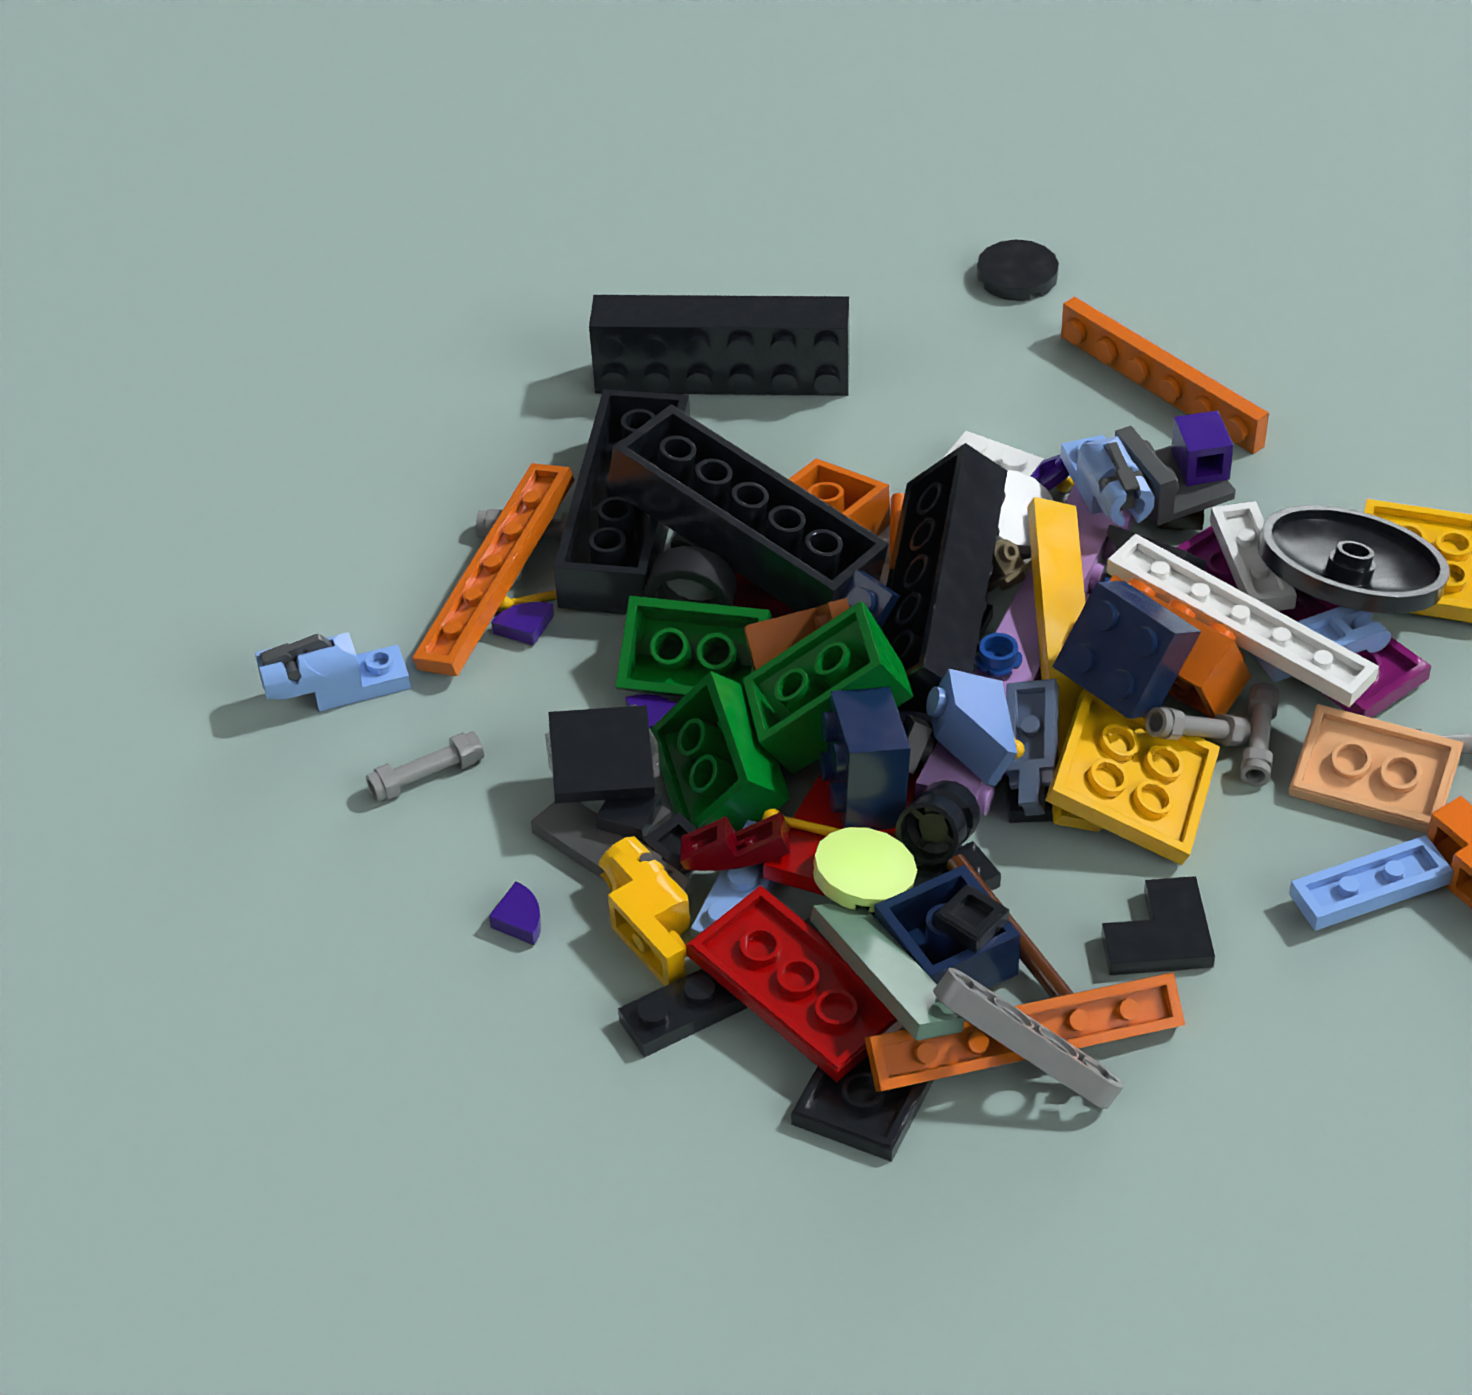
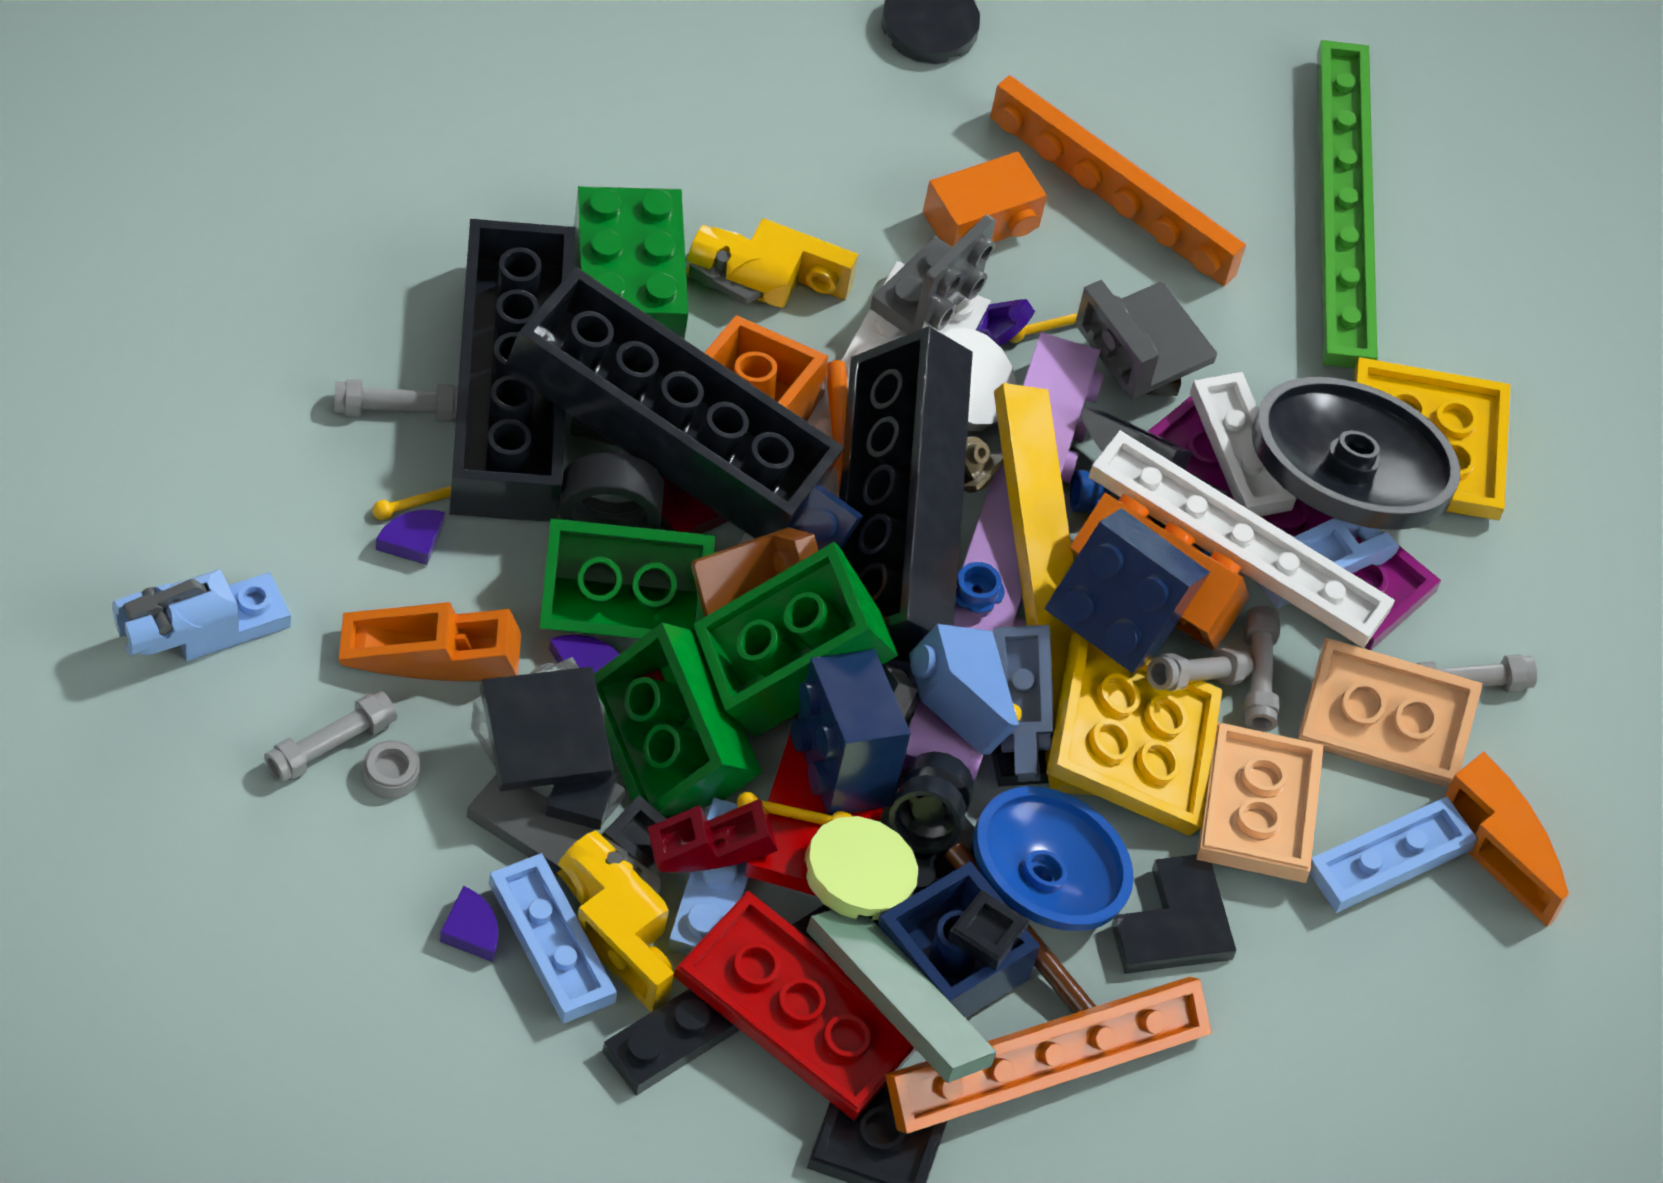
camera: 20 degrees left, 10 degrees up
(473, 793) = (391, 769): none -> light grey tile
(493, 570) = (371, 468): orange plate -> none
(519, 695) = (431, 642): none -> orange slope
(586, 925) = (552, 938): none -> light blue plate
(721, 344) = (552, 140): black brick -> none
(744, 410) = (635, 248): none -> green brick
(857, 430) = (769, 263): none -> yellow plate
(1002, 425) = (936, 281): none -> dark grey bracket
(1028, 1038) = (1058, 1068): light grey beam -> none
(1045, 390) = (996, 188): none -> orange brick
(1045, 871) = (1053, 858): none -> blue dish
(1107, 478) = (1077, 346): light blue plate -> none
(1202, 448) = (1179, 302): dark purple brick -> none
(1248, 838) = (1261, 803): none -> light nougat tile
(1364, 393) = (1346, 204): none -> bright green plate

